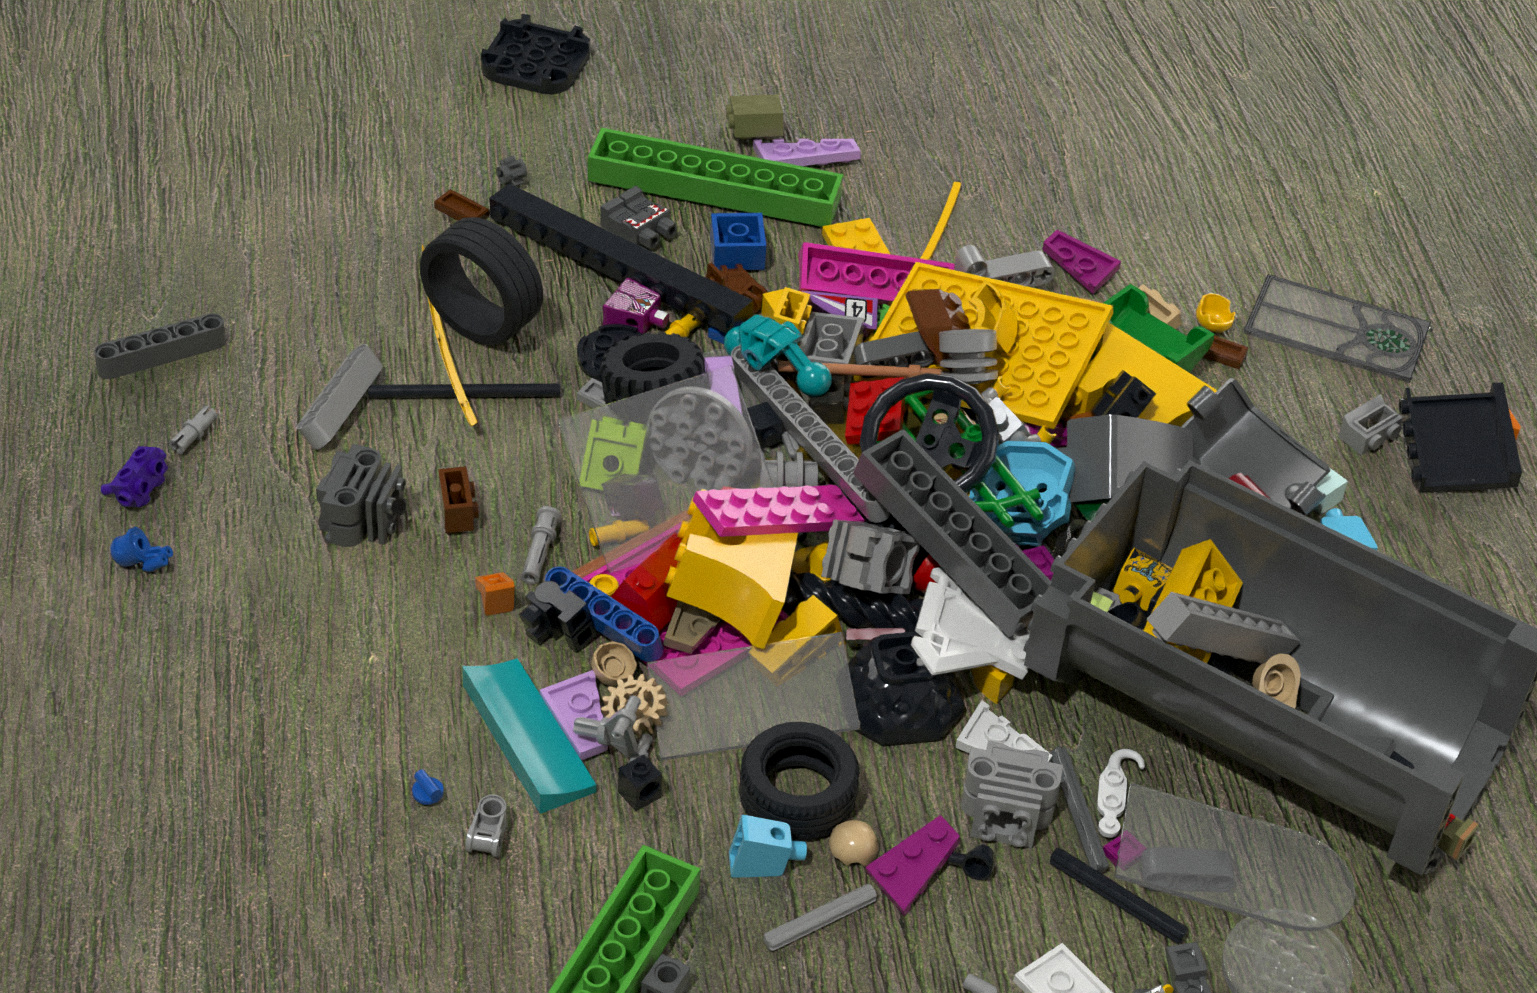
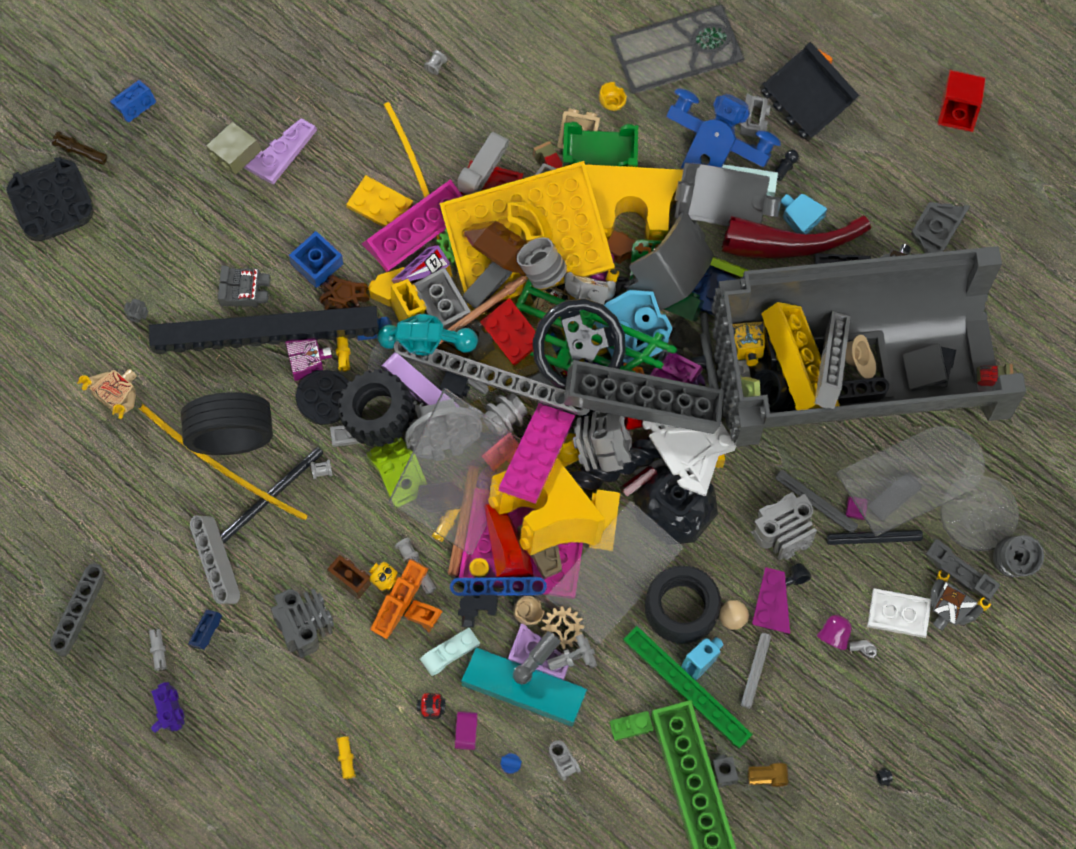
camera: 40 degrees left, 25 degrees up
(135, 548) = (218, 754): blue piece -> none
(247, 450) = (205, 629): none -> dark blue plate
(259, 651) = (345, 757): none -> yellow pin
(405, 673) = (431, 706): none -> black head
(412, 211) = (112, 390): none -> tan torso
(415, 721) = (466, 730): none -> magenta beam
(460, 207) = (131, 360): reddish brown tile -> none
(483, 638) = (449, 651): none -> light aqua plate
(485, 559) = (399, 599): none -> orange slope
(493, 527) = (383, 576): none -> yellow head
(540, 402) = (321, 469): none -> light grey bush
(568, 705) = (523, 673): none -> dark grey piece
(603, 858) = (631, 726): none -> bright green plate
(605, 32) = (71, 145): none -> dark brown pin
(639, 782) = (608, 670): black brick -> none
(703, 38) = (133, 101): none -> blue bracket
(715, 177) = (256, 219): bright green brick -> none
(716, 874) = (687, 687): none -> green plate
(964, 948) = (836, 632): none -> magenta hair
(986, 727) = (749, 494): white wing -> none
(1053, 177) = (435, 62): none -> light grey bush
(1081, 260) = (510, 112): magenta wing -> none
(1112, 791) = (822, 476): white piece -> none
(1130, 399) = (636, 220): black hips -> none
(1227, 352) = (636, 117): reddish brown tile -> none
(1311, 403) = (717, 135): none -> blue piece
(1368, 489) = (785, 165): none -> black pin

